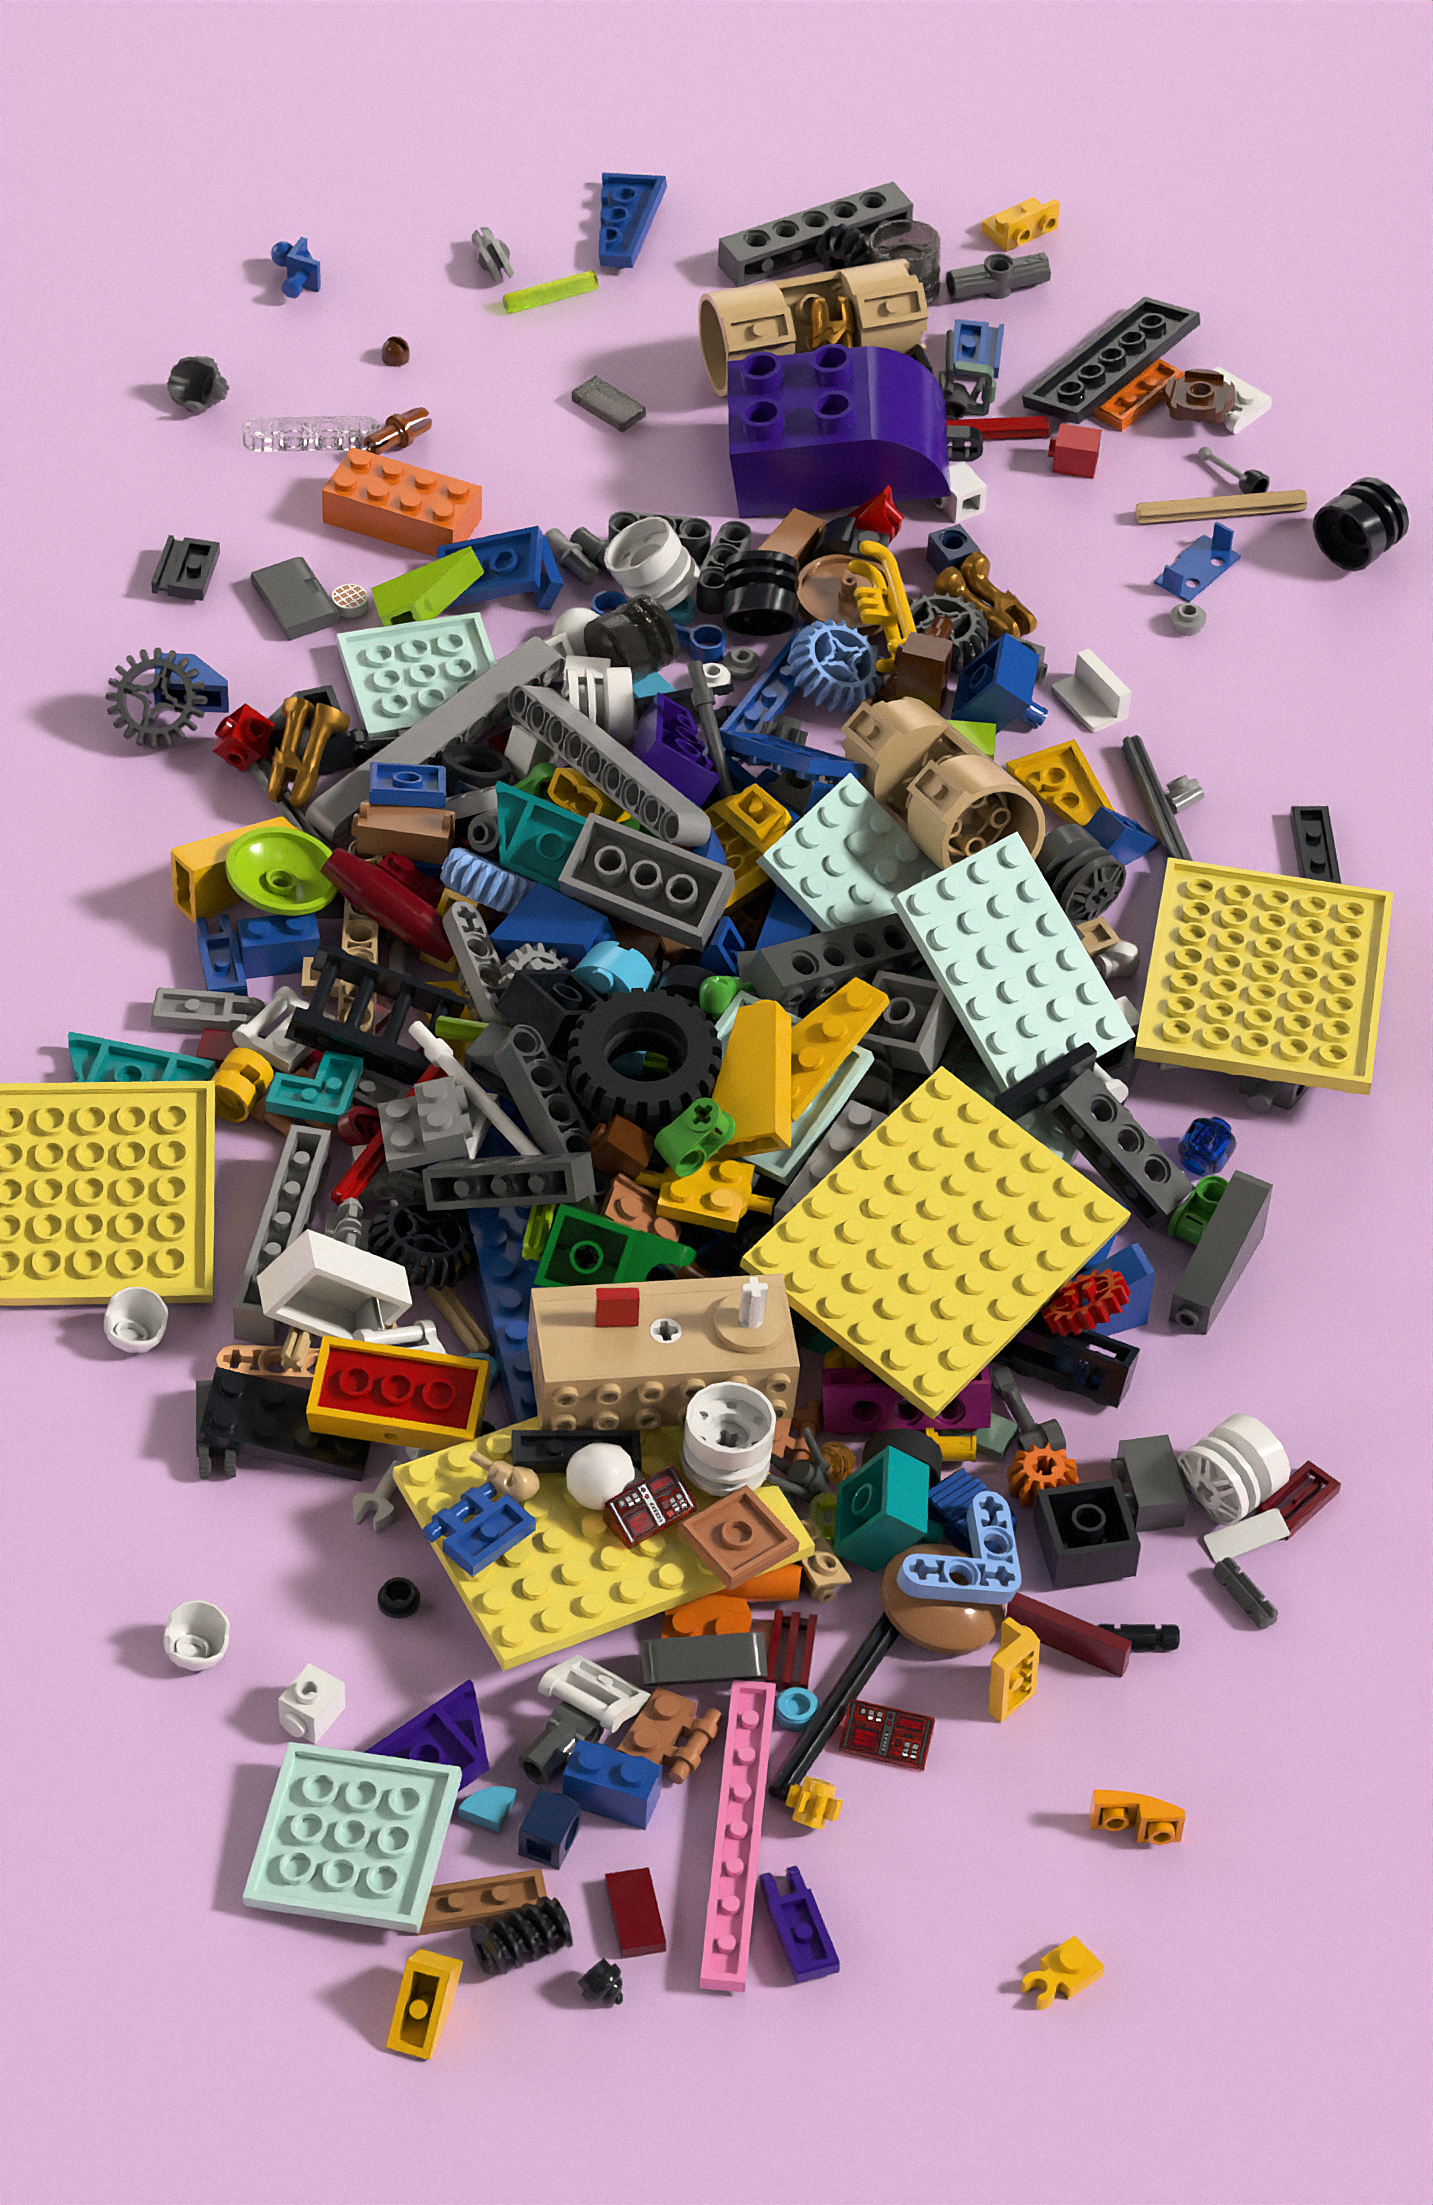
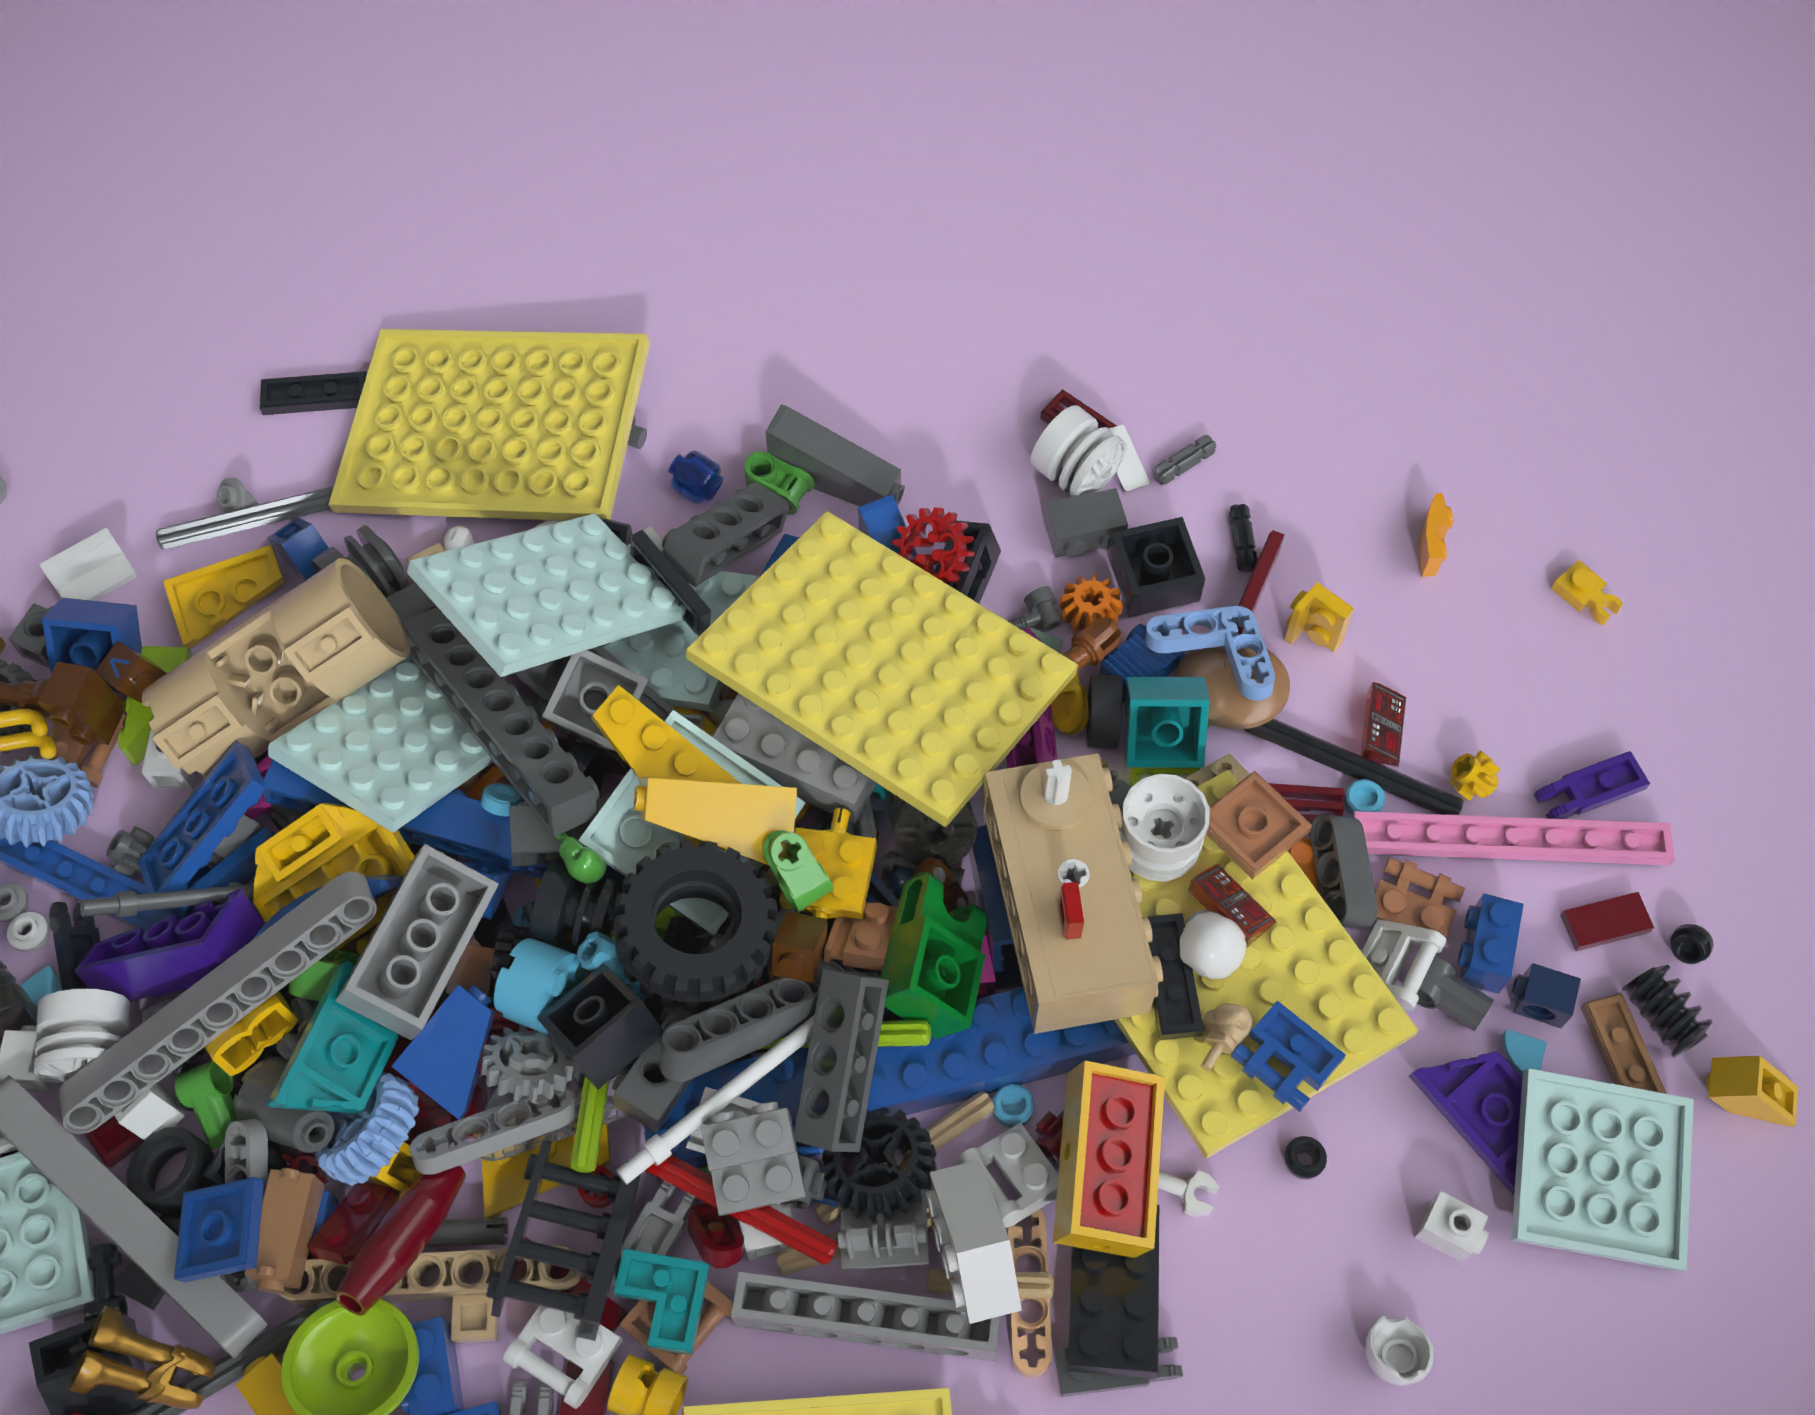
camera: 90 degrees left, 15 degrees up
(958, 704) = (128, 671): none -> reddish brown brick
(976, 1451) = (1094, 643): none -> dark orange arm

